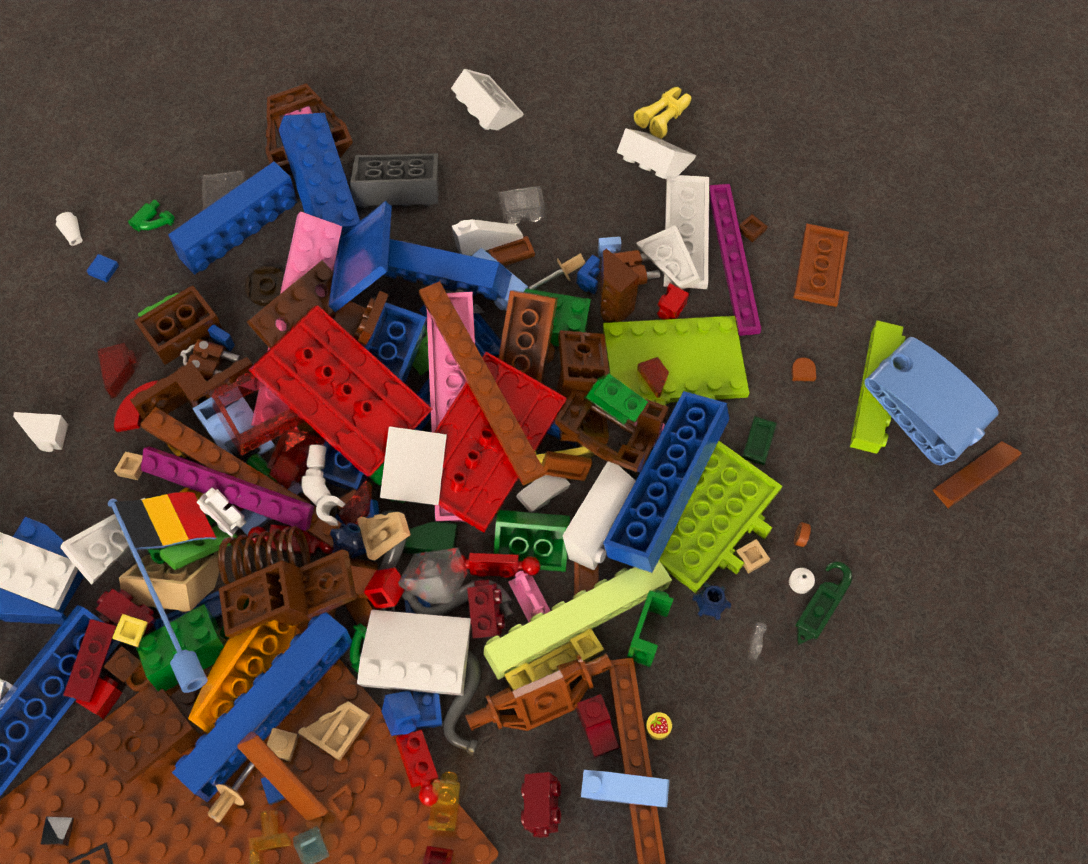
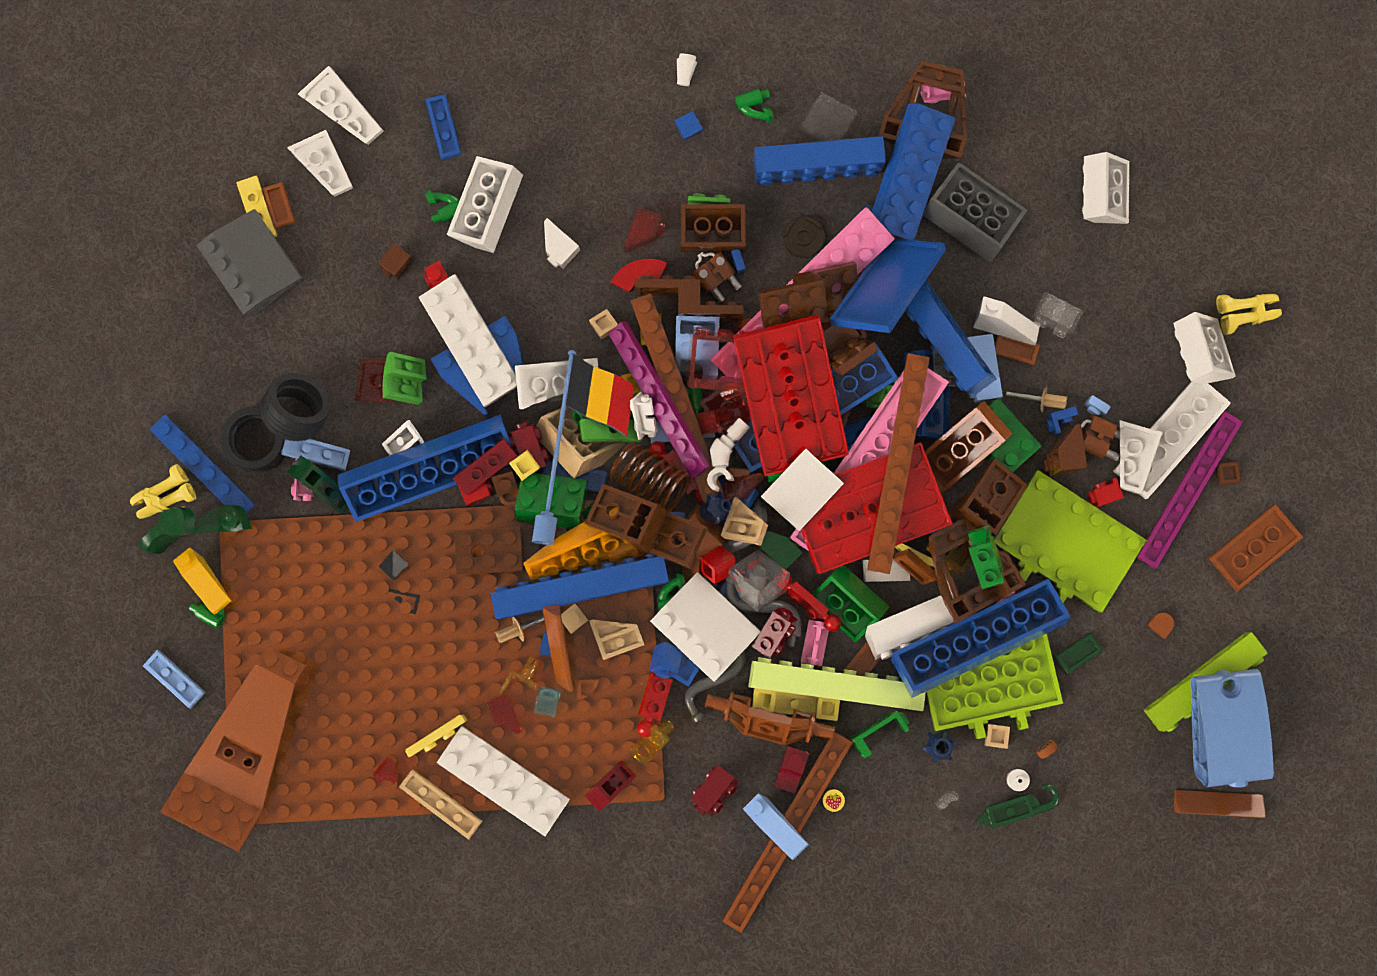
camera: 40 degrees right, 20 degrees up
(654, 374) = (1040, 545): clear red tile -> none

